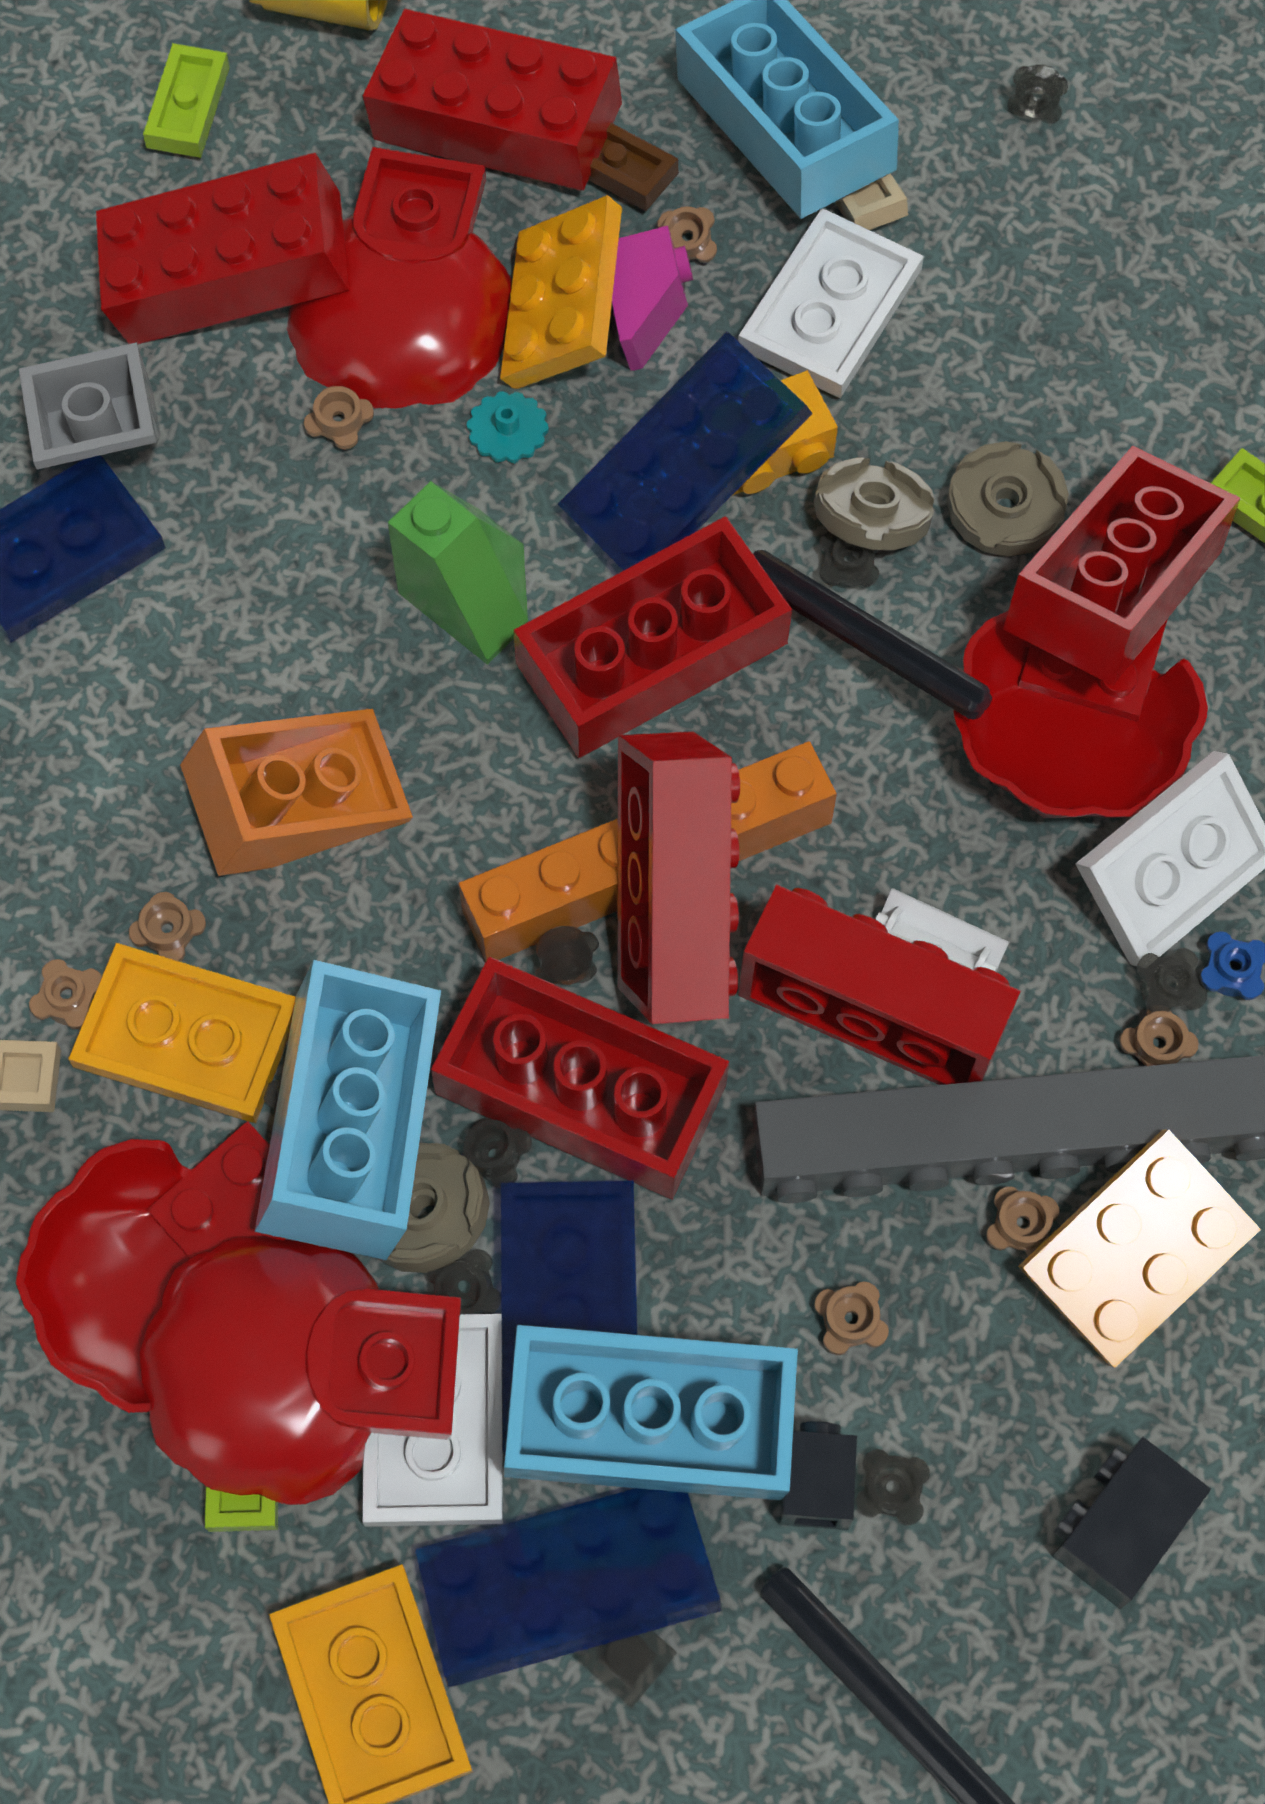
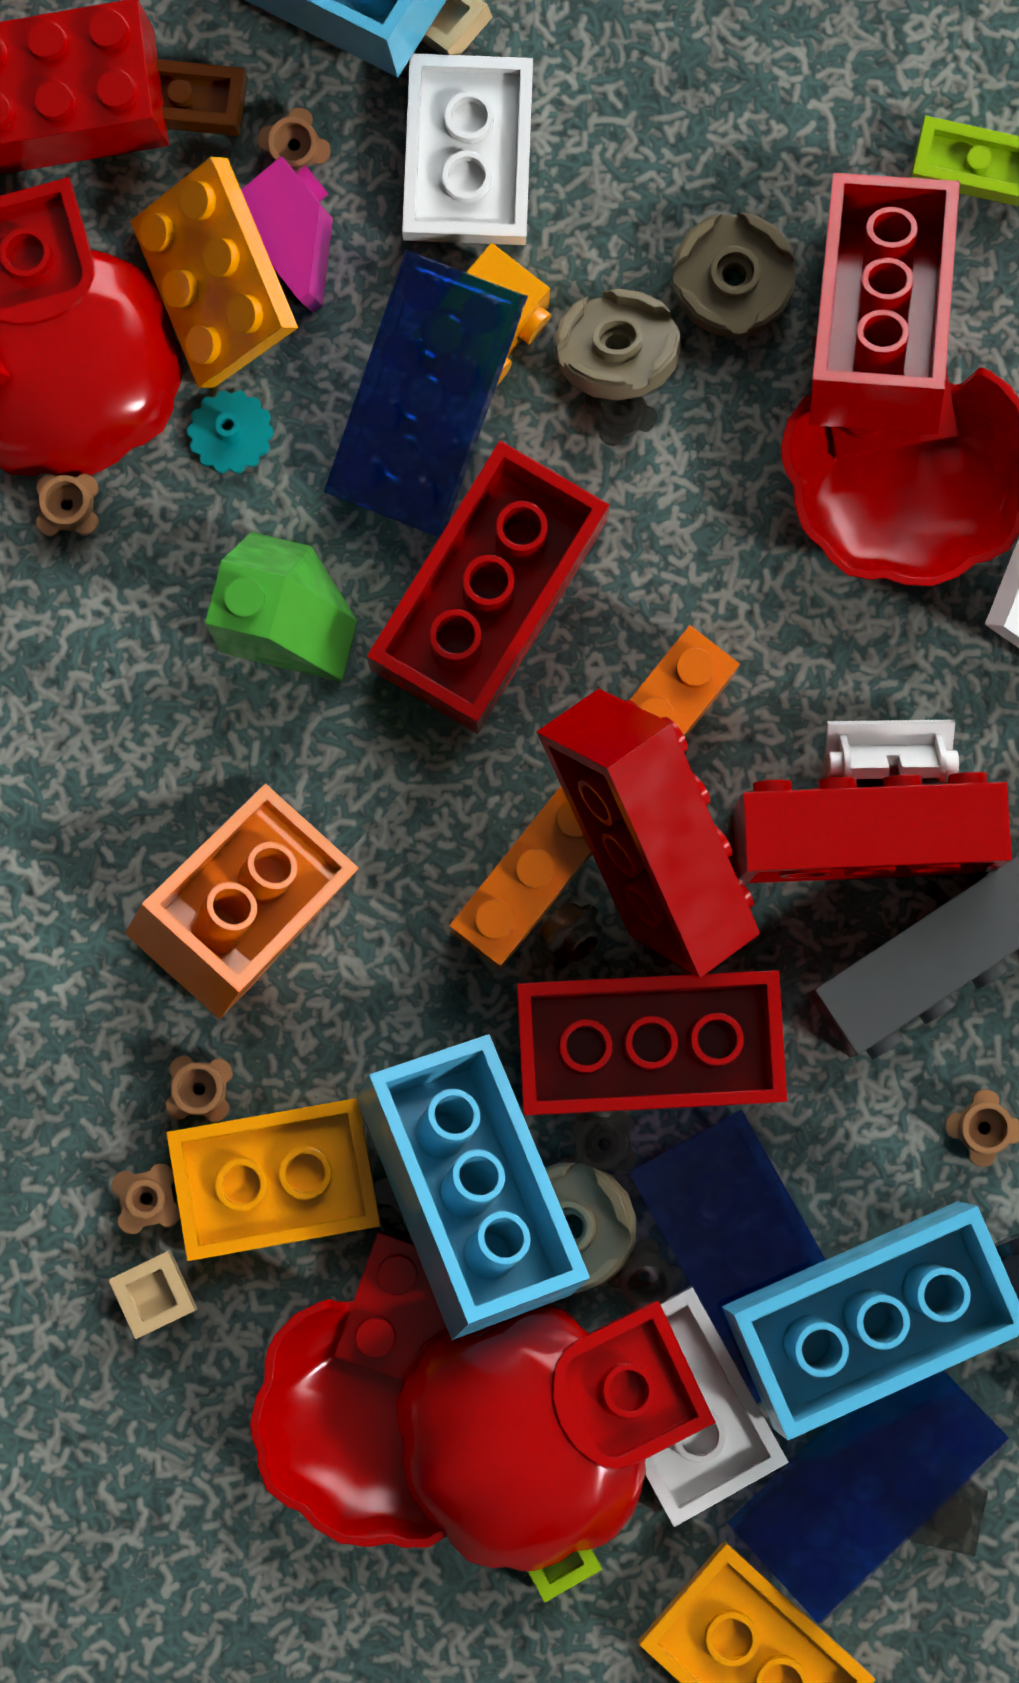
camera: 30 degrees left, 15 degrees up
(877, 639) = (688, 487): black axle -> none

